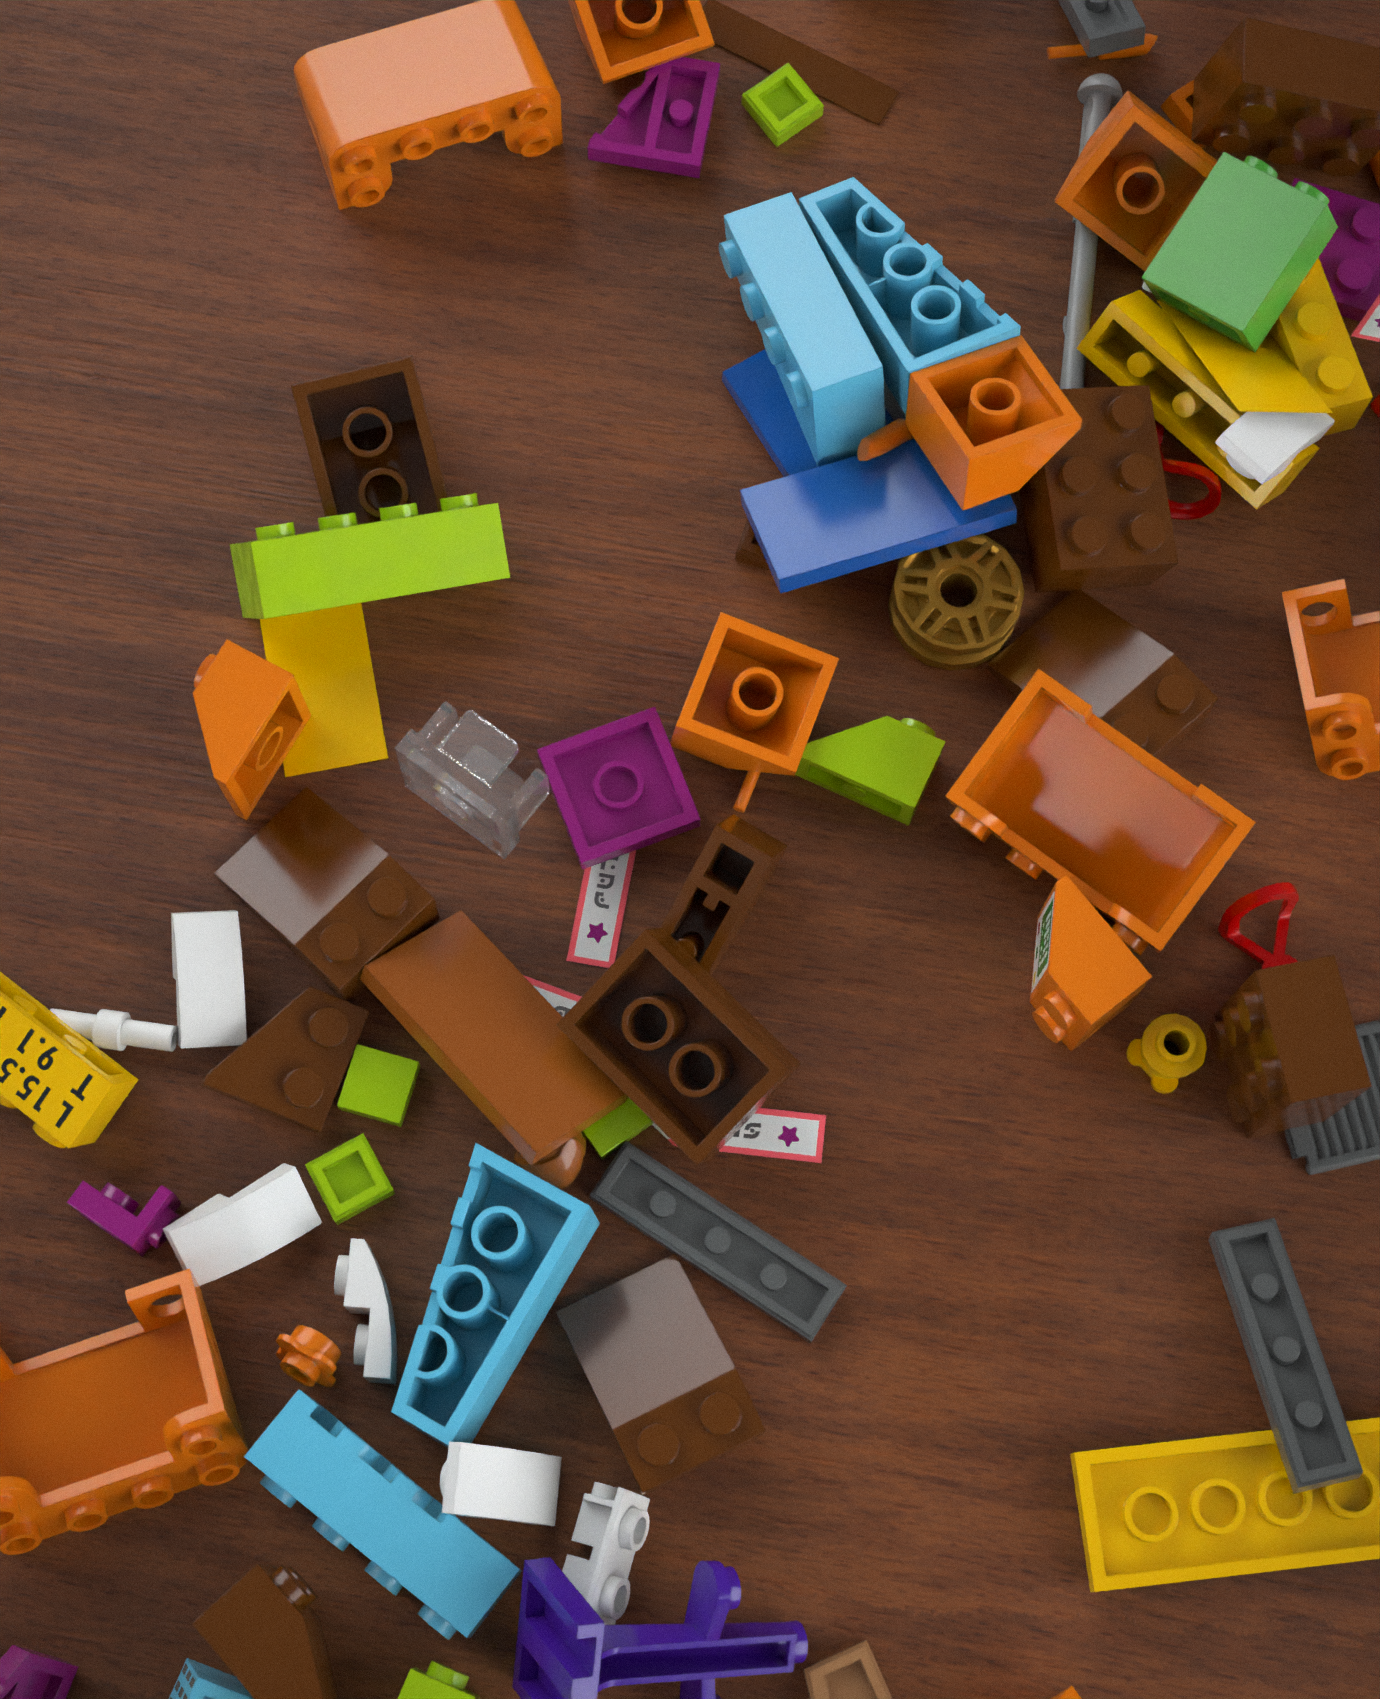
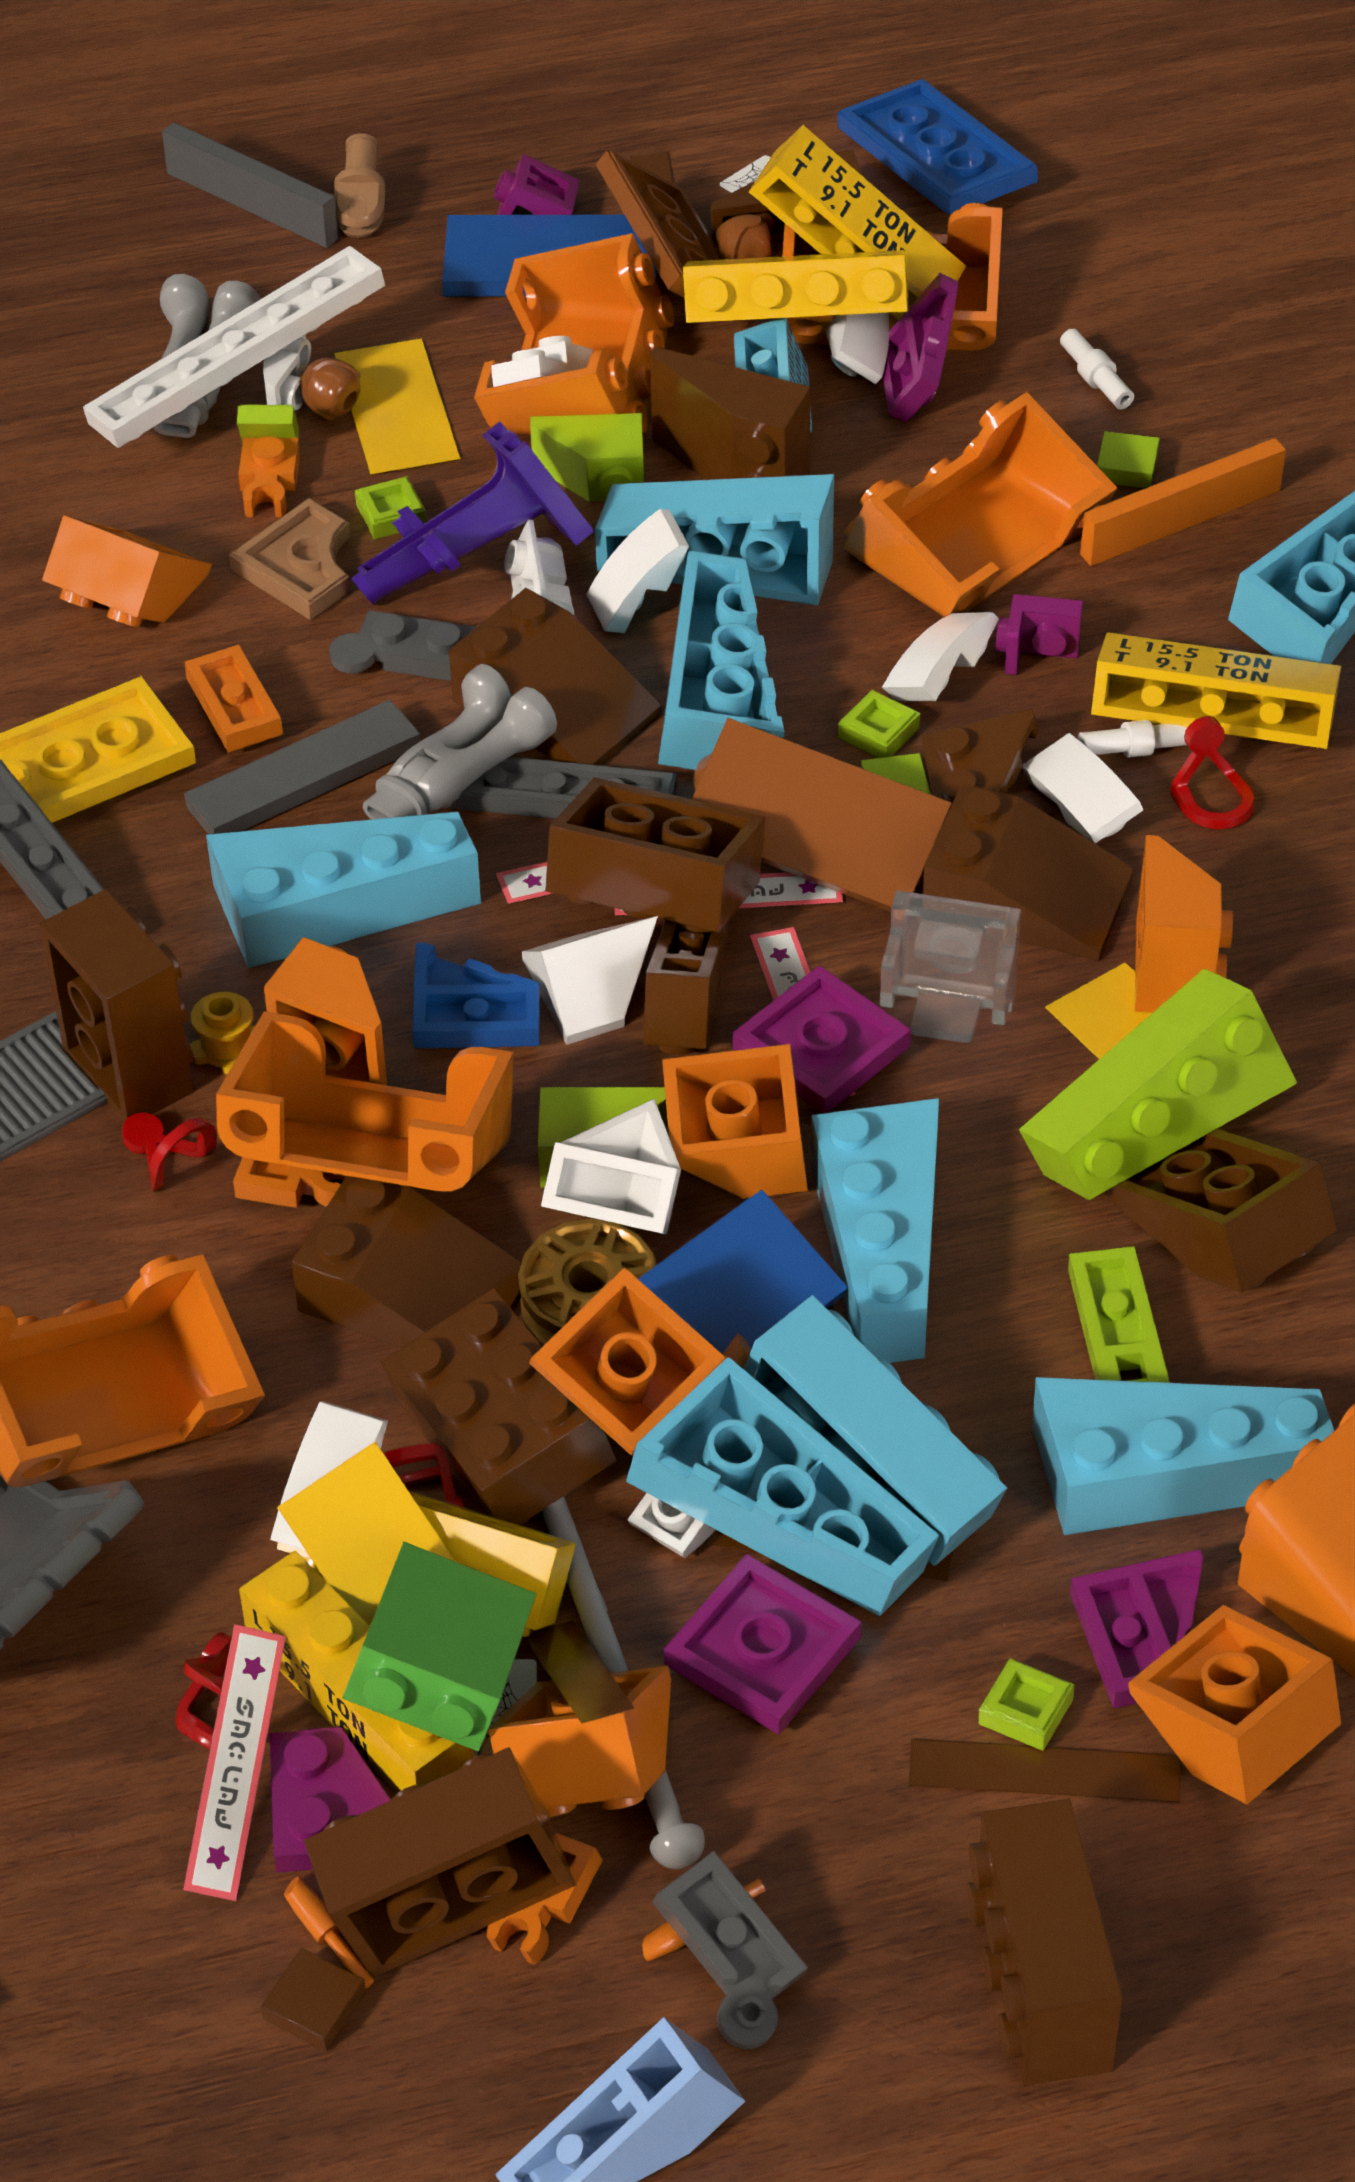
camera: 160 degrees right, 25 degrees down
(75, 958) = (1203, 739): none -> red piece
(308, 1356) = (836, 606): orange plate -> none
(366, 1292) = (804, 646): white slope -> none
(528, 379) = (1116, 1315): none -> lime plate
(555, 234) = (1165, 1448): none -> medium azure wedge
(665, 567) = (877, 1206): none -> medium azure wedge
(784, 1532) = (400, 645): none -> dark grey hinge
(796, 970) = (590, 977): none -> white slope
(848, 1282) = (455, 757): none -> light grey piece
(885, 673) = (617, 1171): none -> white slope
(923, 980) = (471, 1005): none -> blue wing
(962, 1387) = (302, 770): none -> dark grey tile
(967, 218) = (762, 1644): none -> magenta plate
(1002, 1523) = (233, 698): none -> orange plate
(1009, 1185) = (340, 879): none -> medium azure wedge
(1132, 201) = (578, 1672): none -> reddish brown sticker

